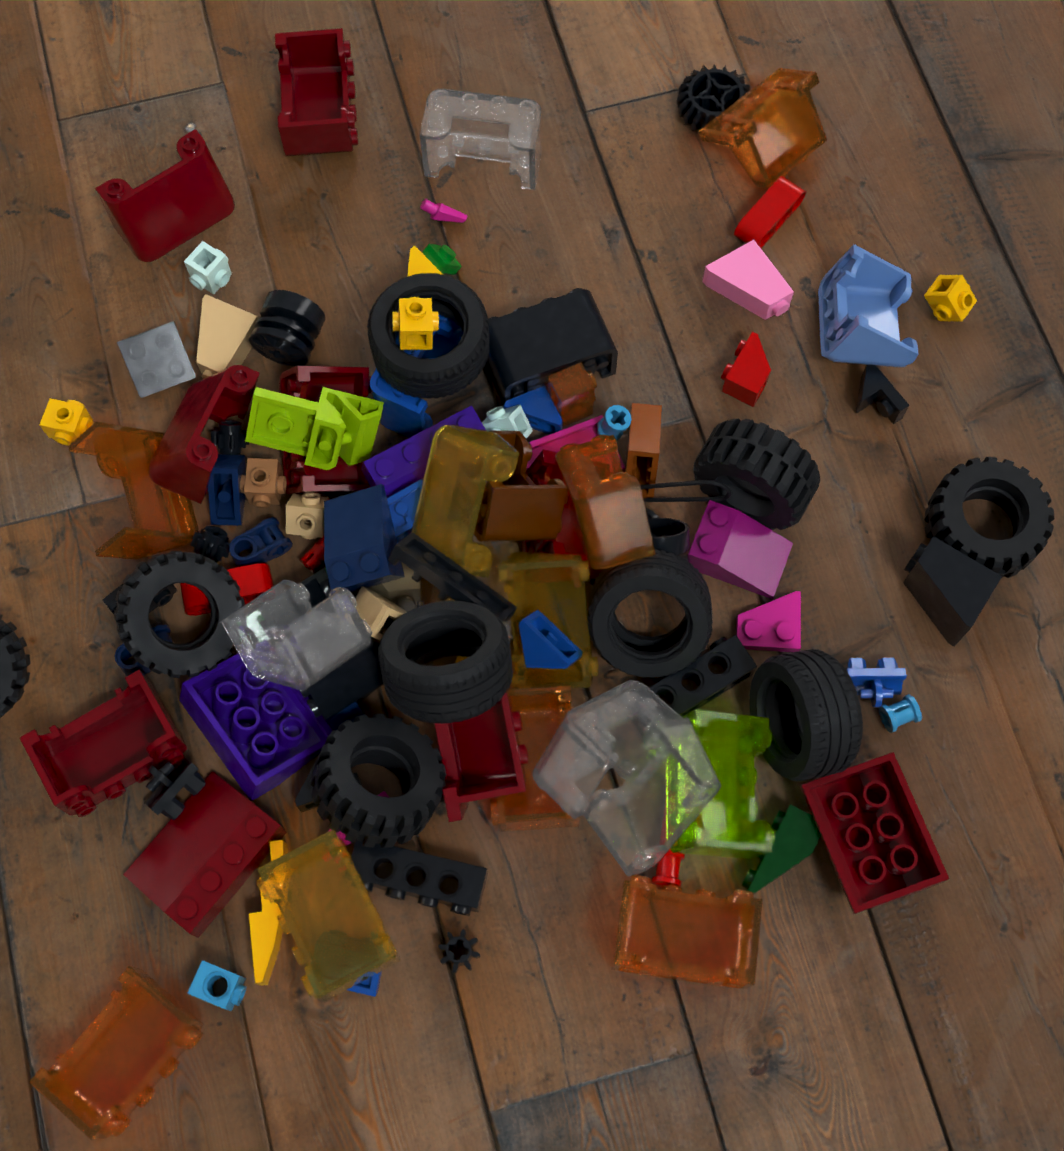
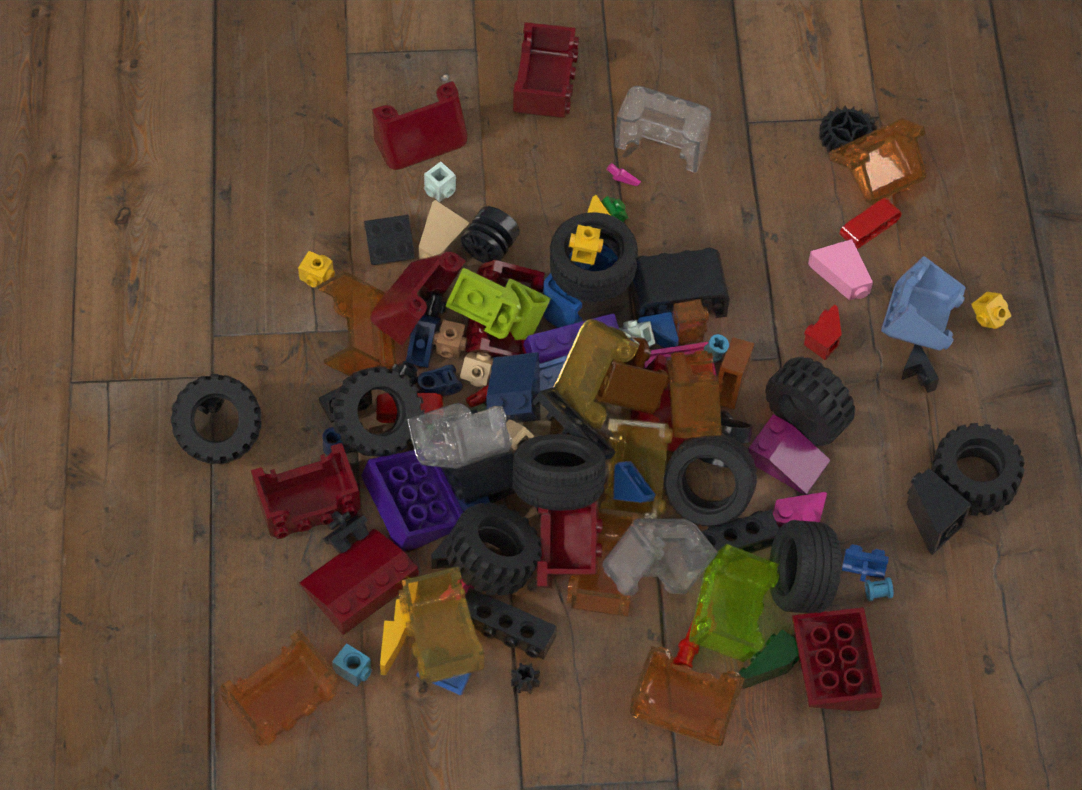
camera: 10 degrees right, 10 degrees down
(657, 799) = (689, 598): clear windscreen -> none
(687, 499) = (754, 411): black piece -> none

